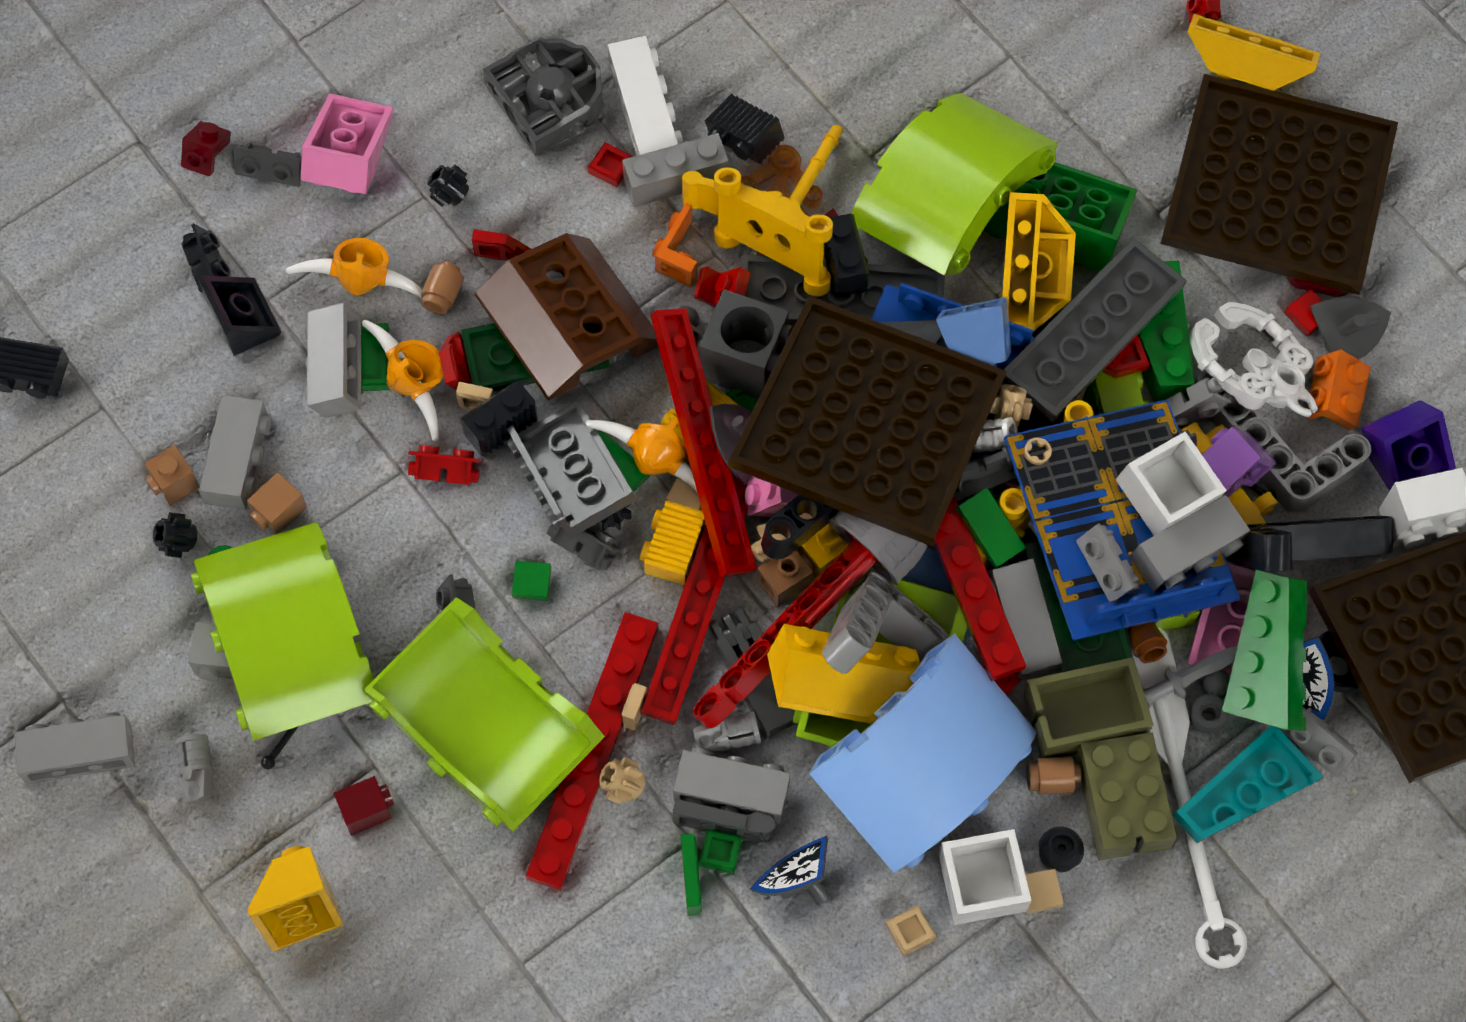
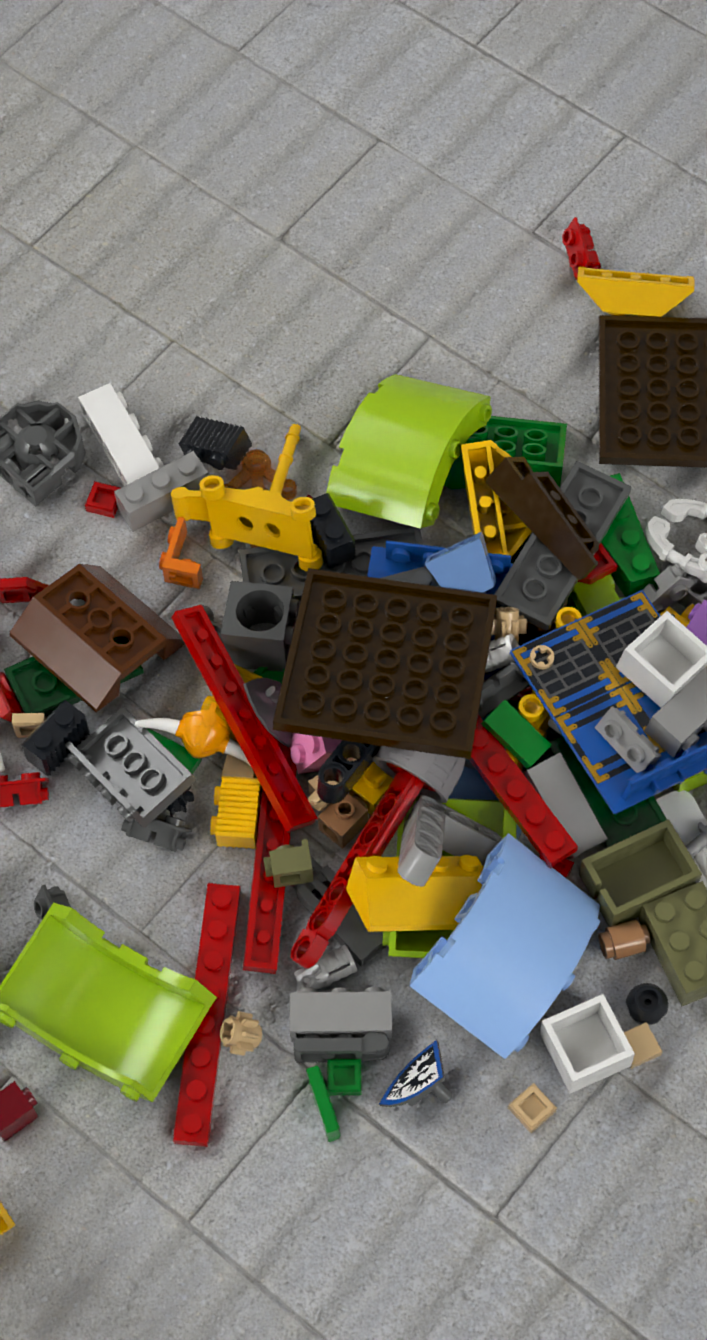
camera: 10 degrees left, 5 degrees down
(531, 580) = (117, 875): green tile -> none
(633, 706) = (235, 965): tan tile -> none
(712, 283) = (218, 581): red bracket -> none
(714, 613) = (289, 865): none -> olive brick
(1084, 290) = (546, 513): none -> dark brown wedge
(1147, 642) = (676, 804): dark orange cone -> none

